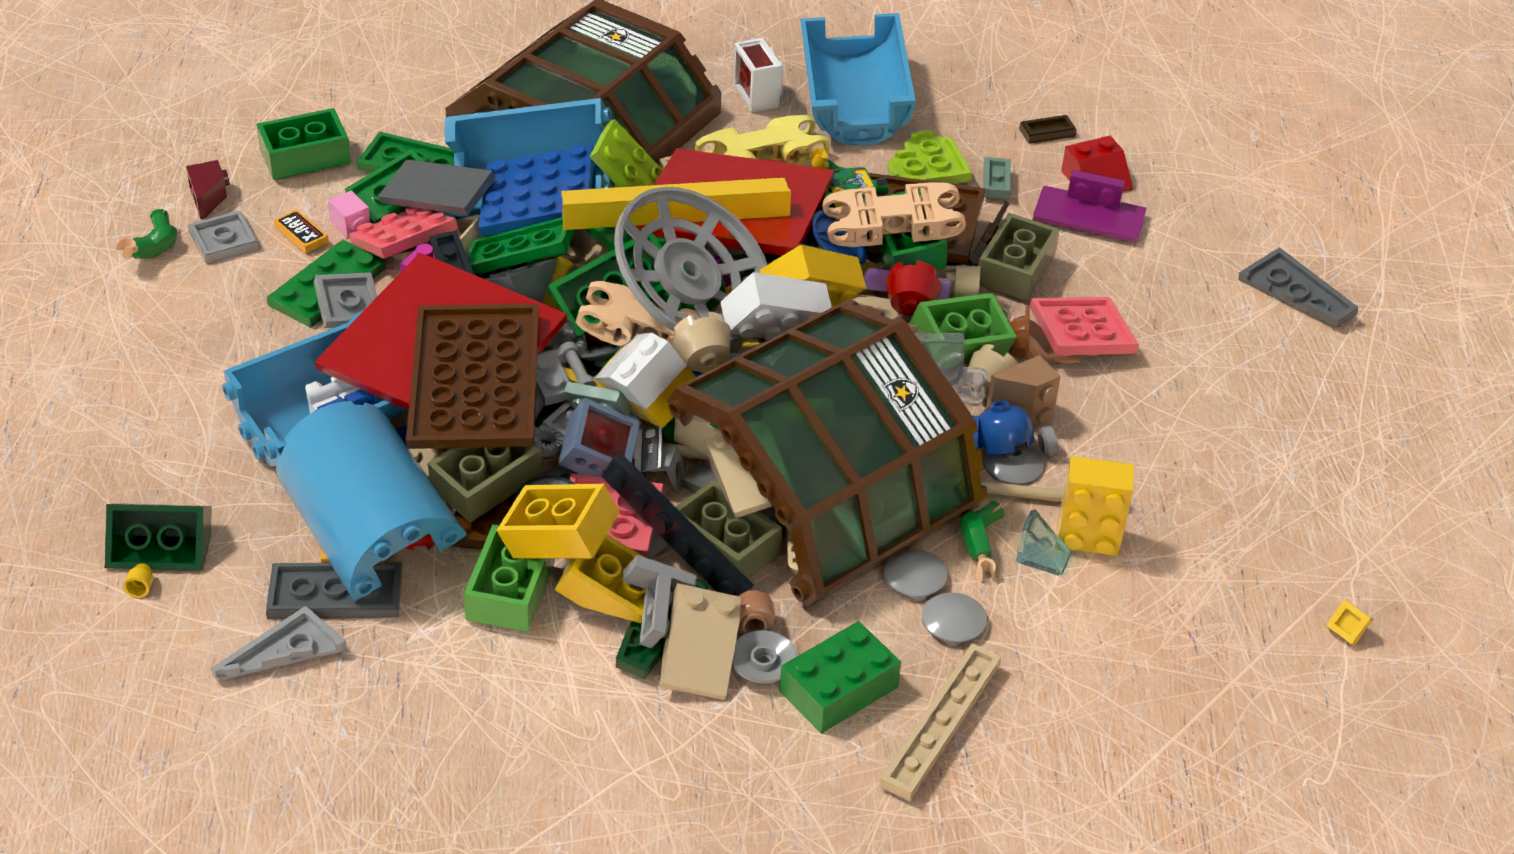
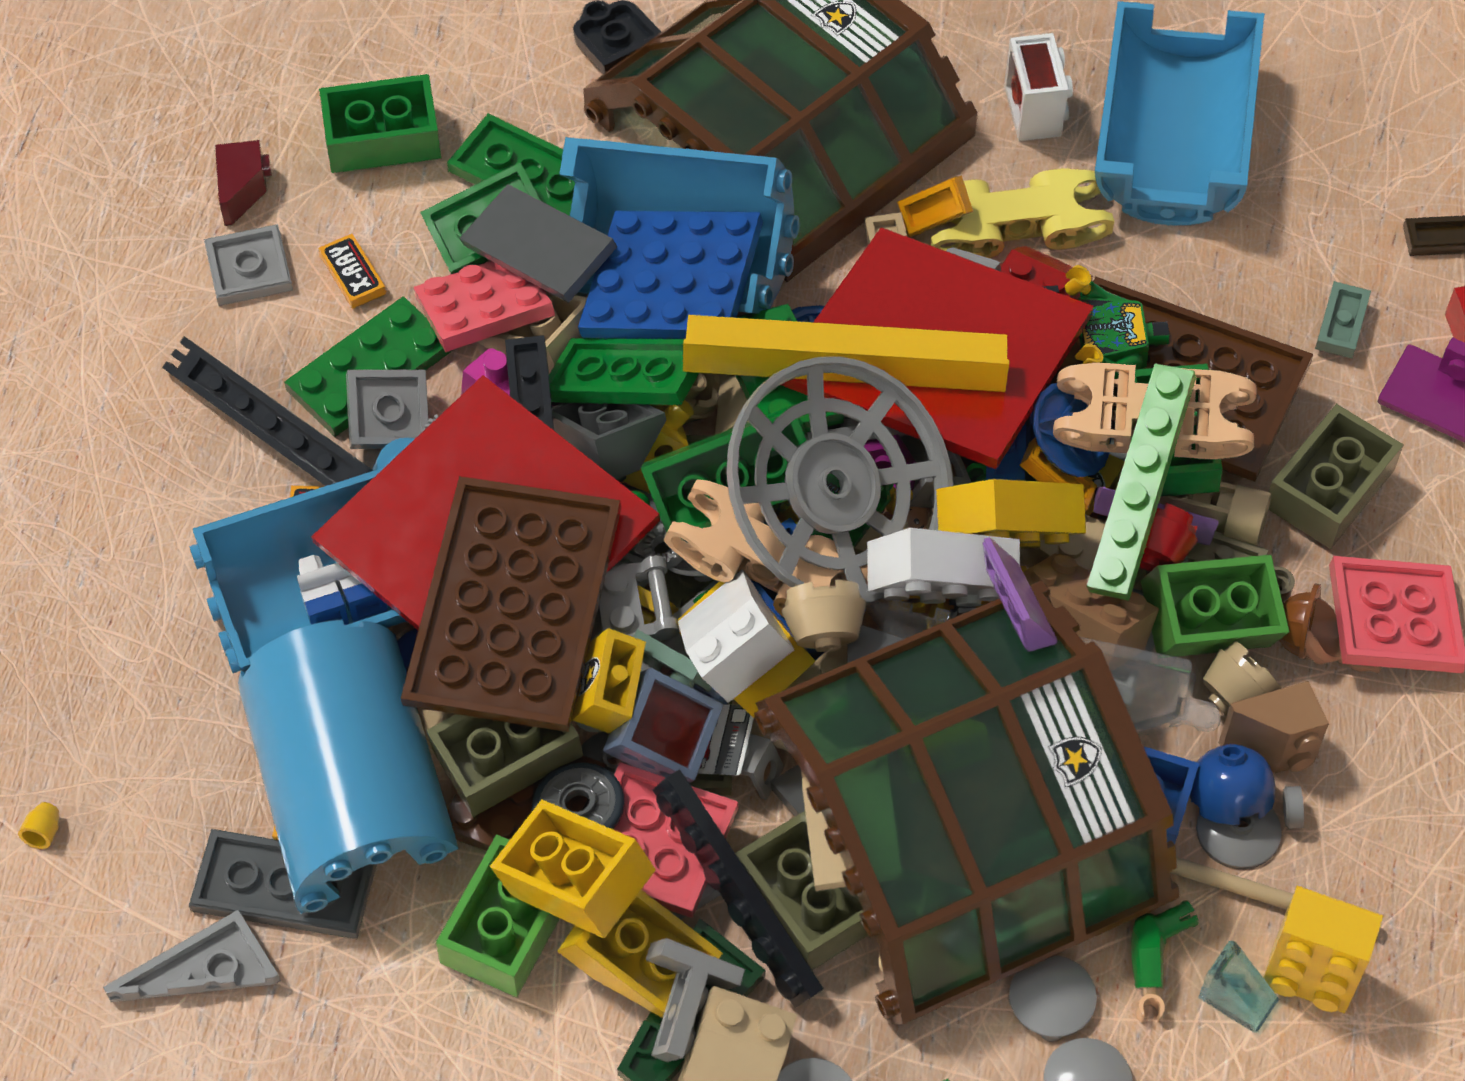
camera: 15 degrees right, 15 degrees up
(153, 244) = (154, 267): green arm -> none
(157, 536) = (74, 760): dark green slope -> none
(248, 312) = (264, 416): none -> black hinge
(348, 213) = (419, 254): bright pink brick -> none
(454, 80) = (612, 32): none -> black plate
(556, 413) = (609, 681): none -> yellow brick
(624, 158) = (798, 257): lime plate -> none
(711, 139) = (935, 206): none -> light orange tile
(756, 612) = (817, 1028): nougat head -> none
(835, 303) = (1017, 597): none -> medium lavender slope
(898, 248) = (1141, 482): none -> plate
(930, 159) = (1250, 275): lime plate -> none
(986, 237) = (1298, 433): dark brown animal -> none

